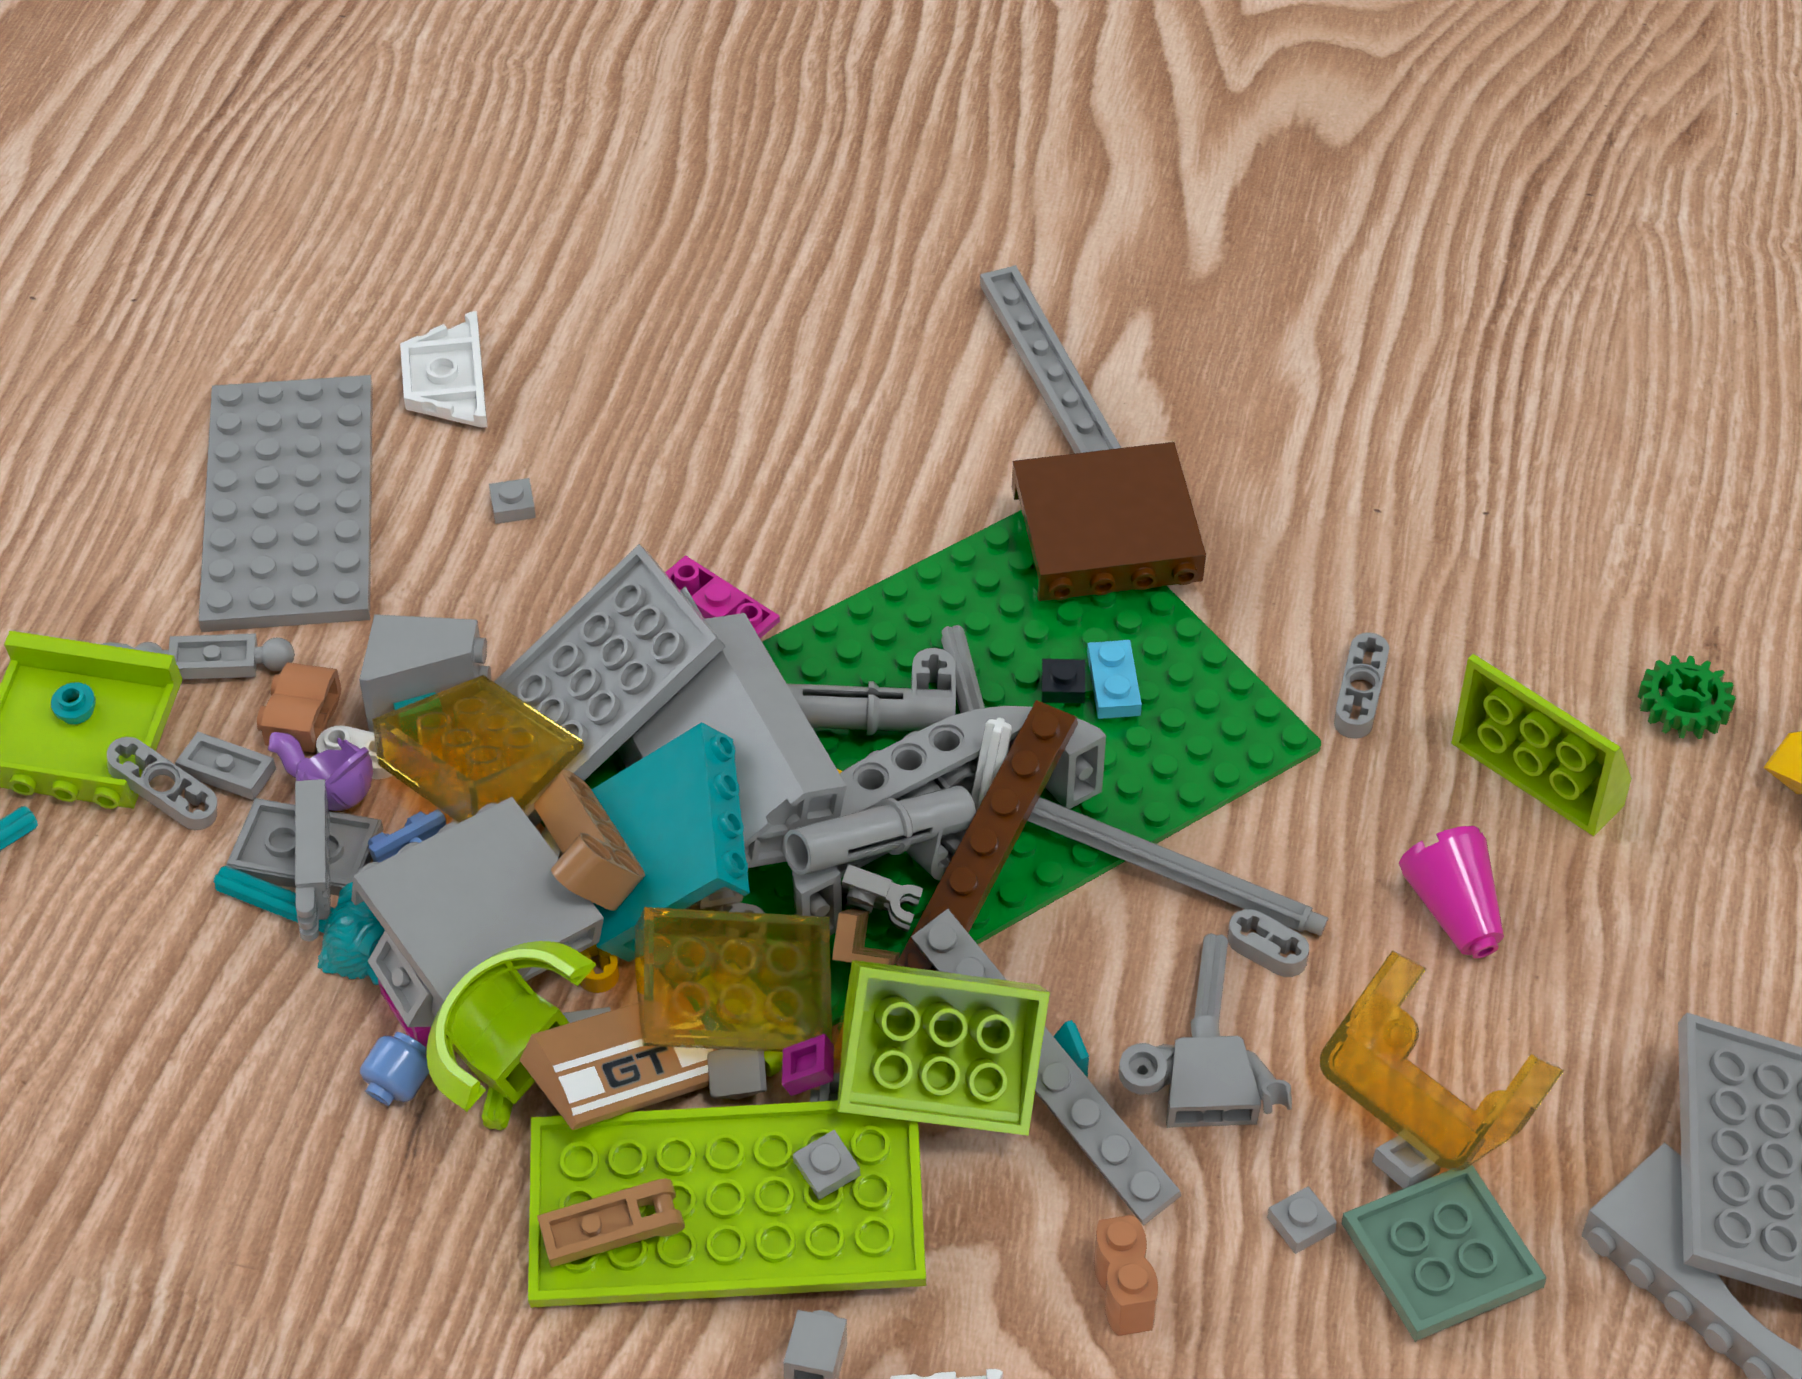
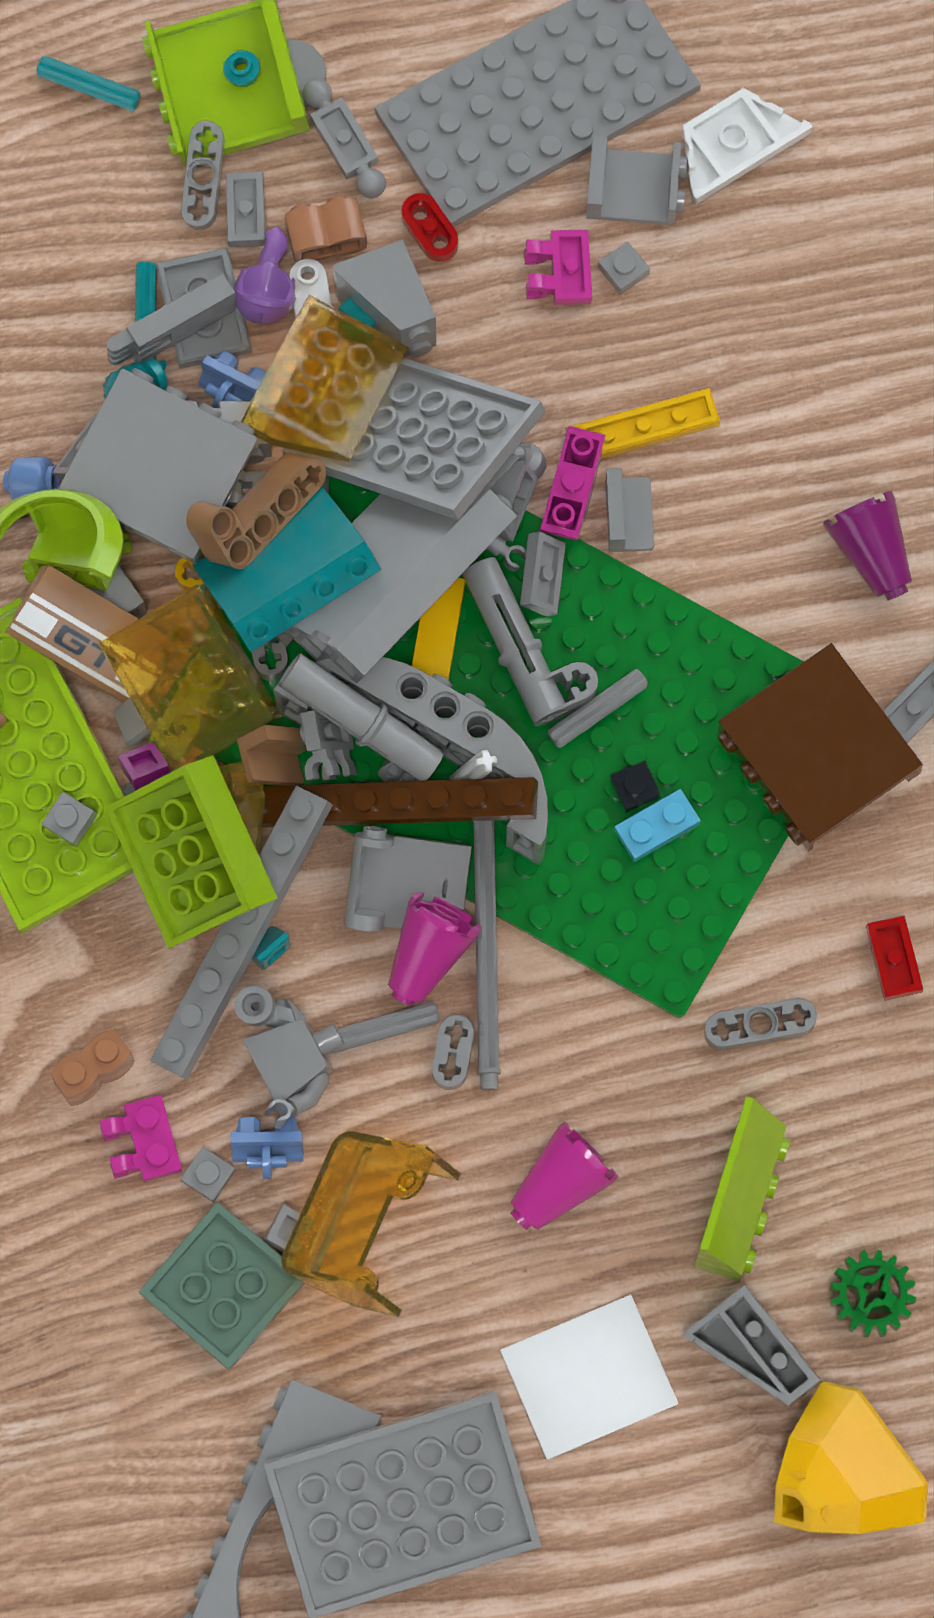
camera: 65 degrees right, 25 degrees up
(351, 624) = (430, 229): none -> red plate
(435, 459) = (635, 184): none -> light grey panel
(483, 534) = (570, 267): none -> dark pink plate
(691, 523) = (655, 422): none -> yellow tile
(773, 589) = (629, 512): none -> light grey panel
(801, 664) = (542, 574): none -> light grey plate
(922, 415) = (874, 544): none -> magenta cone
(1065, 900) = (392, 868): none -> light grey door
(1150, 904) = (428, 946): none -> dark pink cone
(1235, 1259) = (151, 1137): none -> dark pink plate
(1303, 1144) = (266, 1149): none -> medium blue hips
(1345, 558) = (894, 958): none -> red plate
(1675, 962) = (589, 1377): none -> white sticker
(1709, 799) = (755, 1346): none -> light grey wedge

